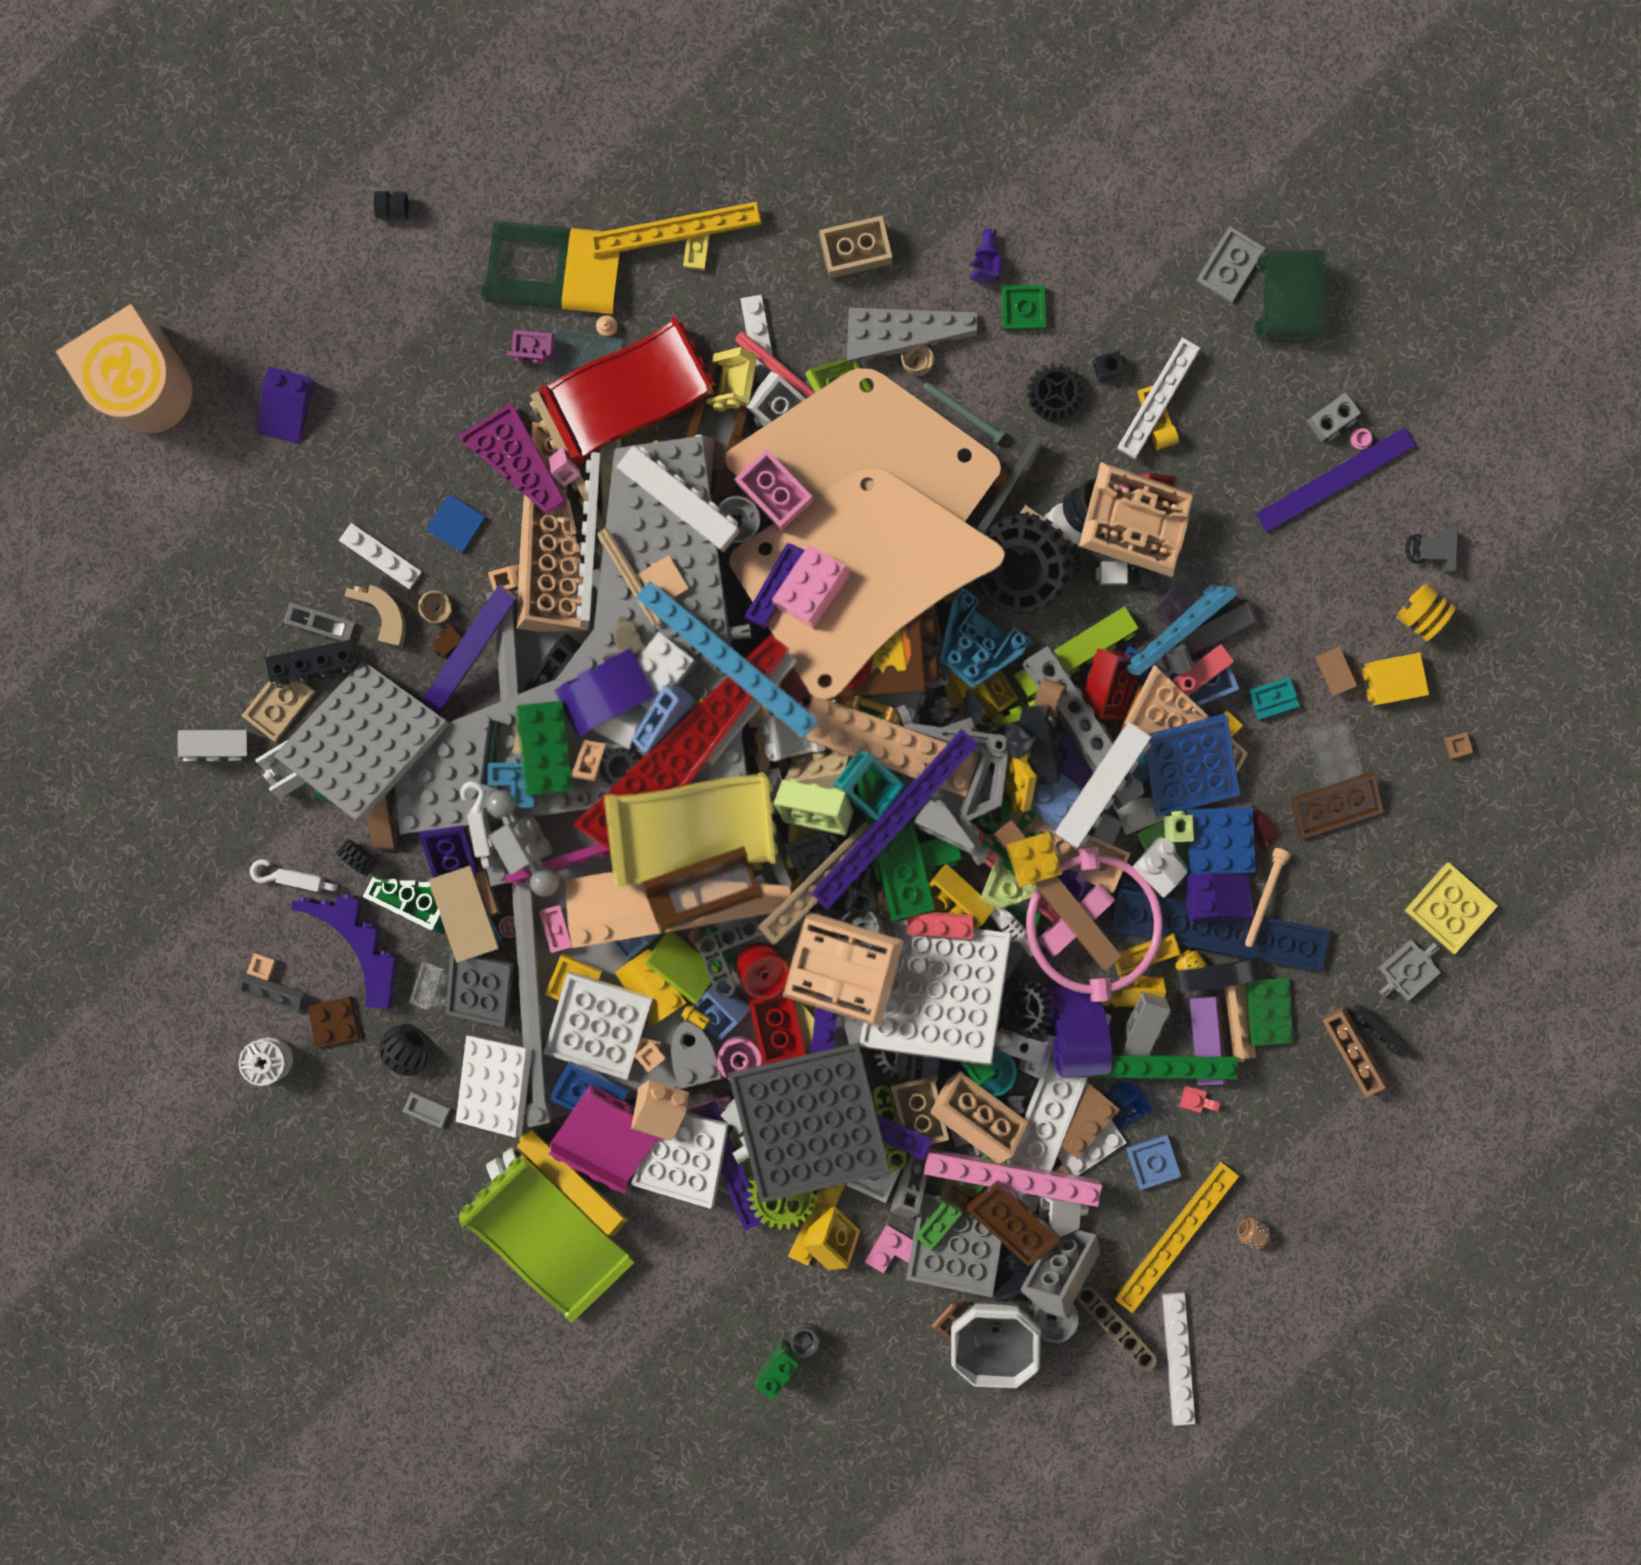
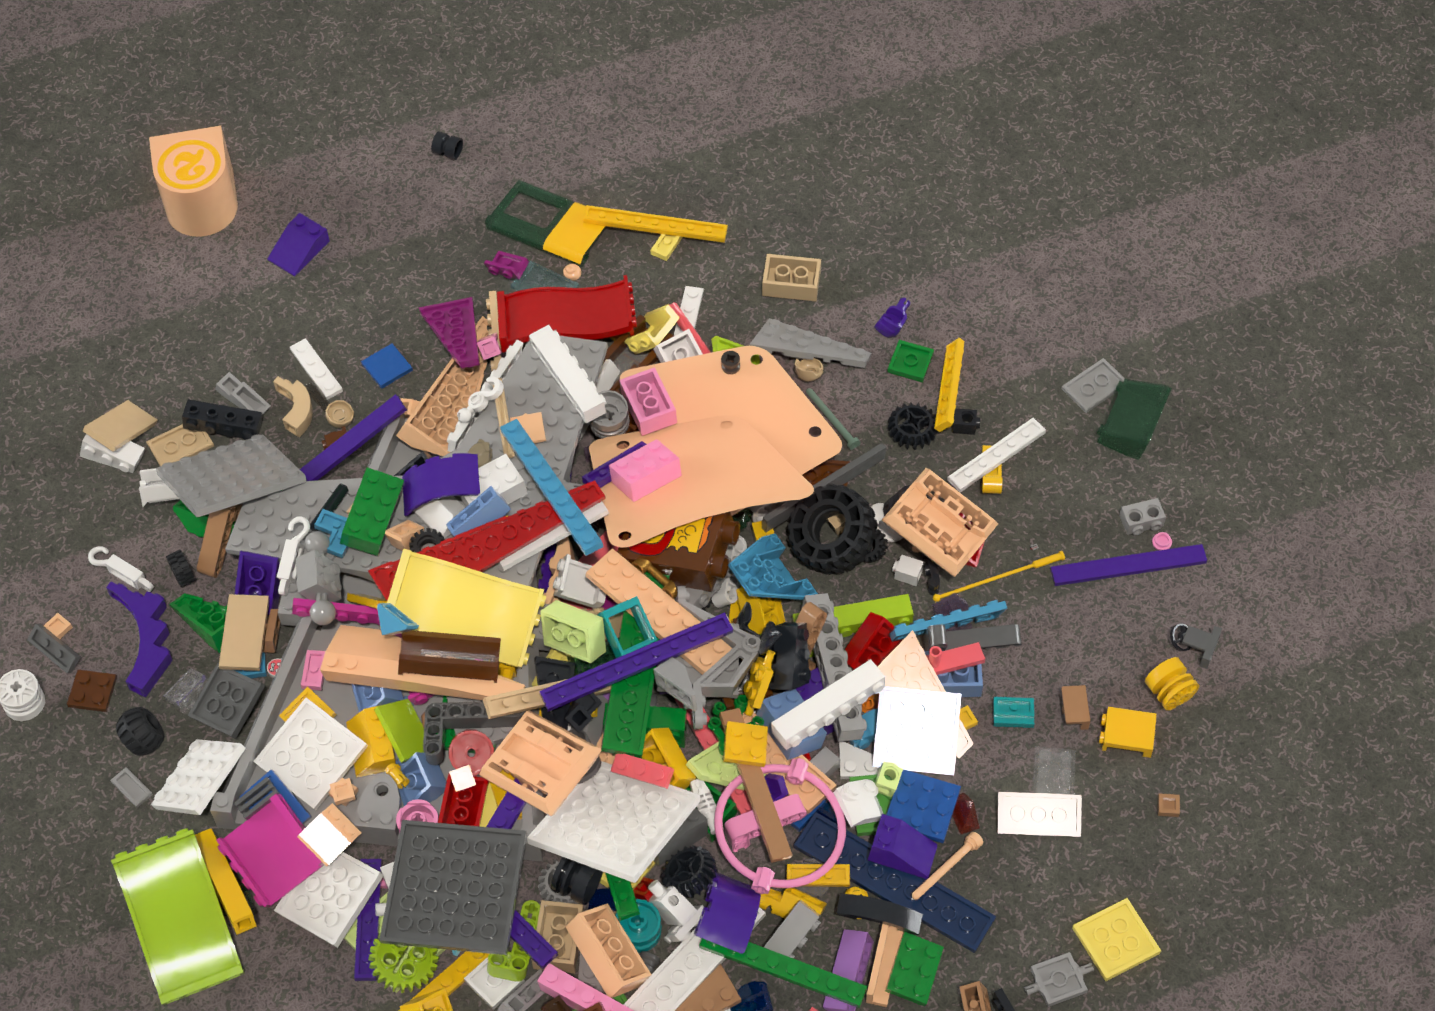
camera: 20 degrees right, 30 degrees down
(208, 717) = (120, 425): none -> tan tile
(560, 1112) = (247, 815): none -> dark grey tile
(575, 837) = (364, 599): none -> yellow tile
(595, 564) = (479, 400): none -> white piece
(634, 883) = (393, 620): none -> dark azure slope
(767, 1005) = (462, 778): none -> tile
(844, 406) = (728, 366): none -> pearl dark grey wheel
(1078, 327) = (949, 385): none -> yellow plate
(1238, 515) = (1036, 564): none -> yellow piece

